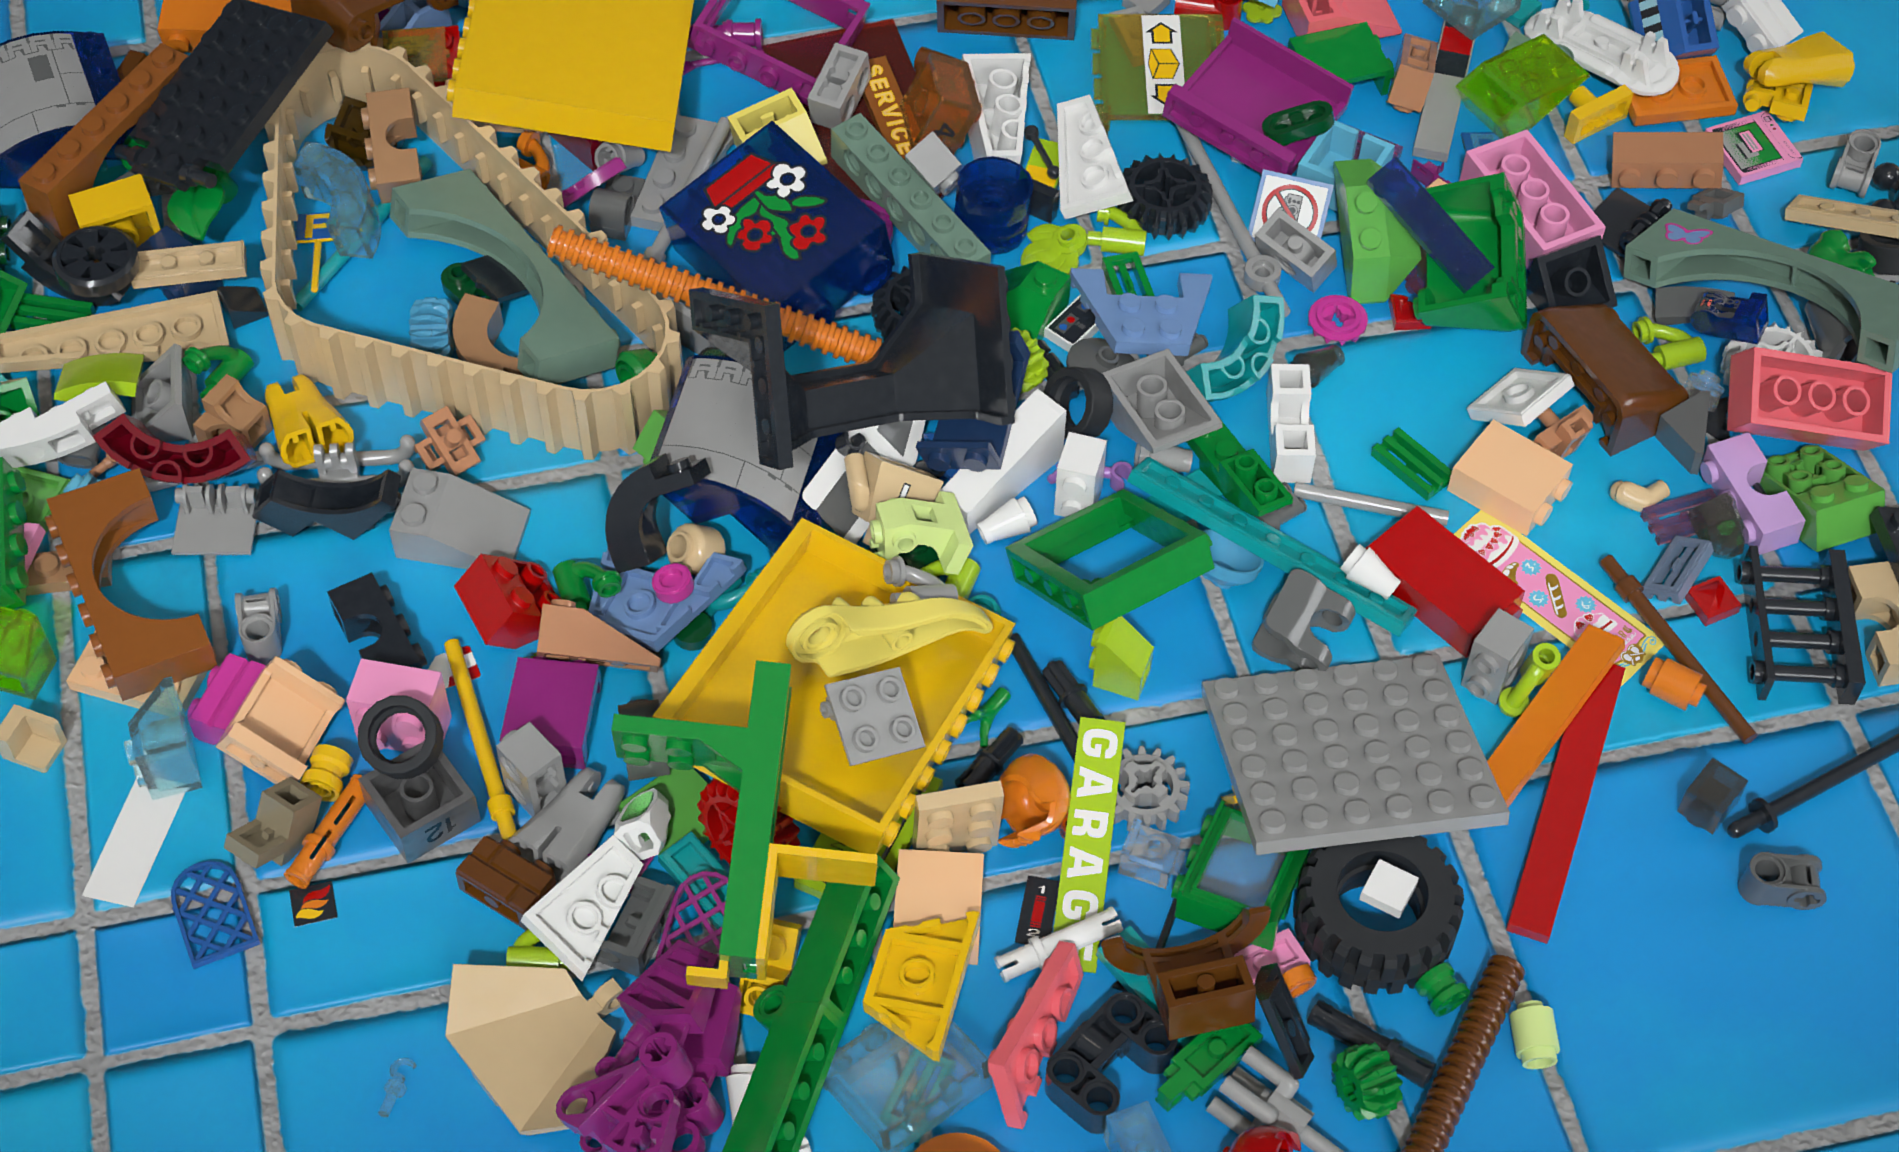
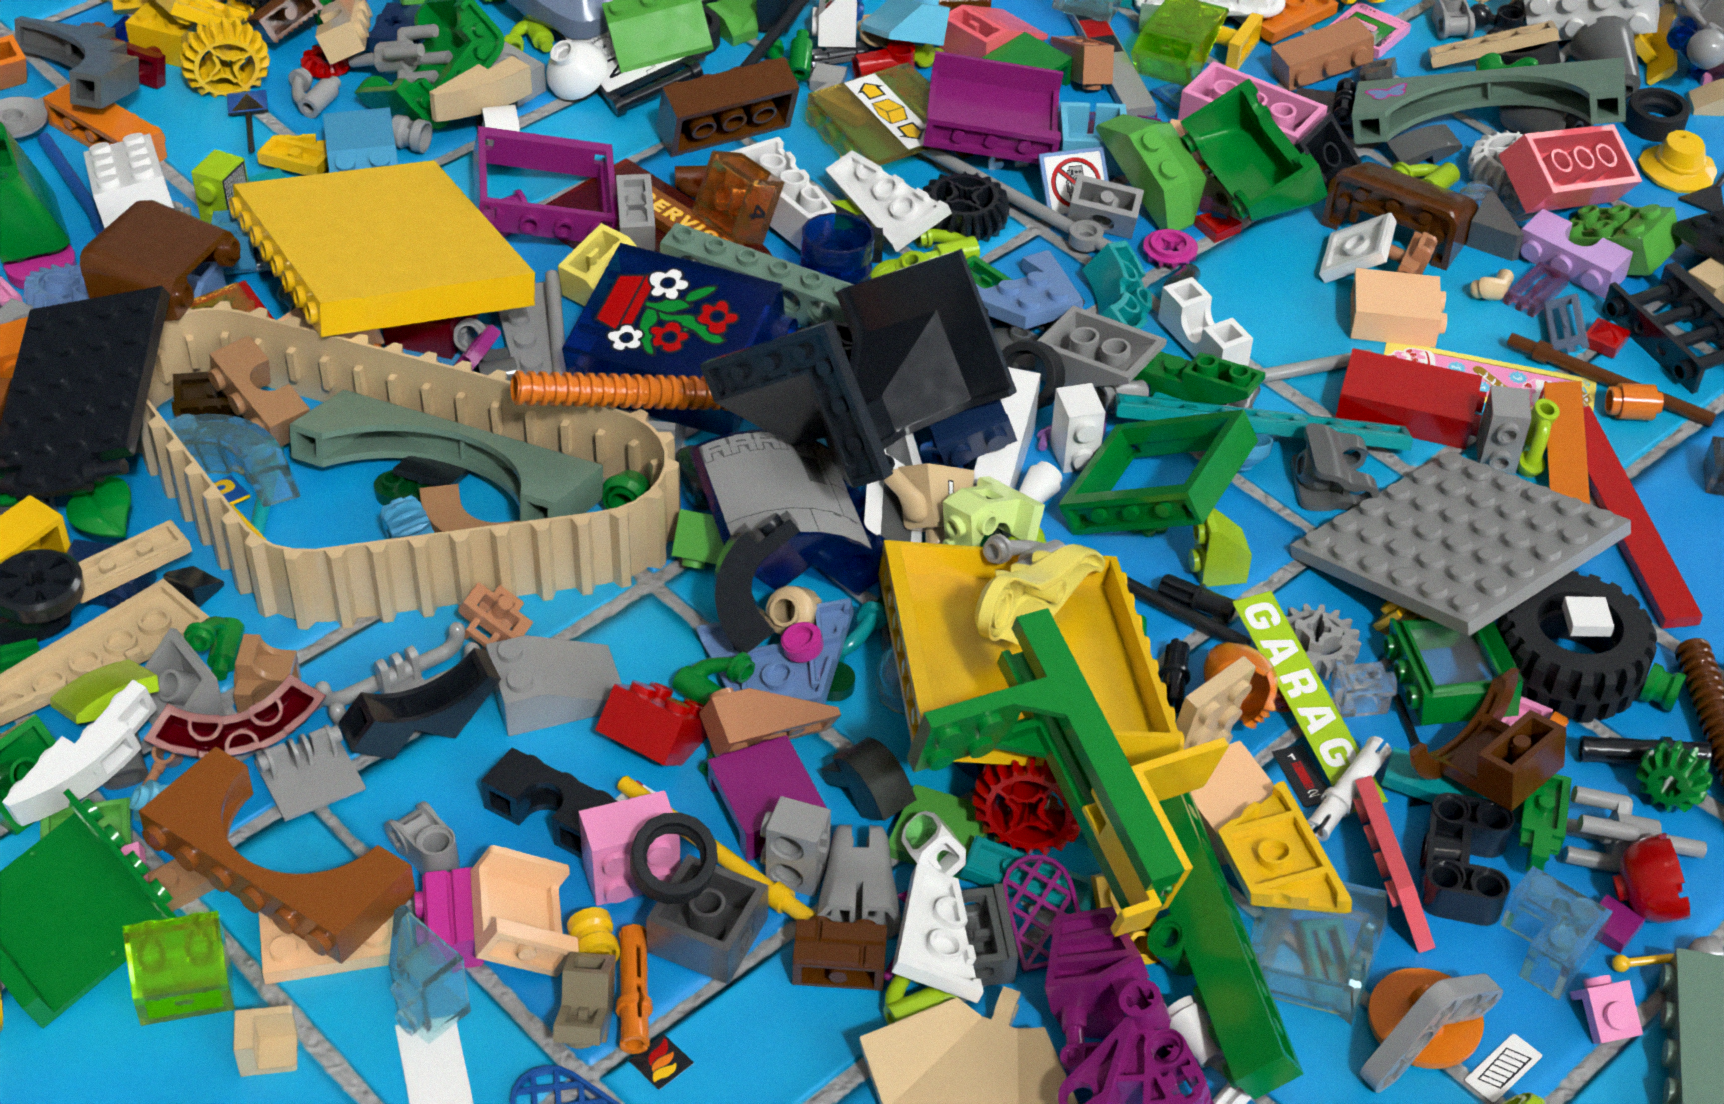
camera: 30 degrees left, 10 degrees down
(304, 420) = (340, 651): yellow piece -> none
(873, 716) = (1099, 654): light grey hinge -> none
(935, 164) = (774, 234): light grey brick -> none
(1284, 1019) = (1592, 760): black slope -> none
(1299, 122) = (1043, 108): dark green plate -> none
(1370, 572) = (1355, 407): white cone -> none
(1417, 461) = (1312, 328): green tile -> none
(1430, 225) = (1210, 142): clear blue plate -> none
(1721, 524) = (1572, 276): clear smoke rock -> none
(1731, 316) = (1466, 135): clear blue leg -> none

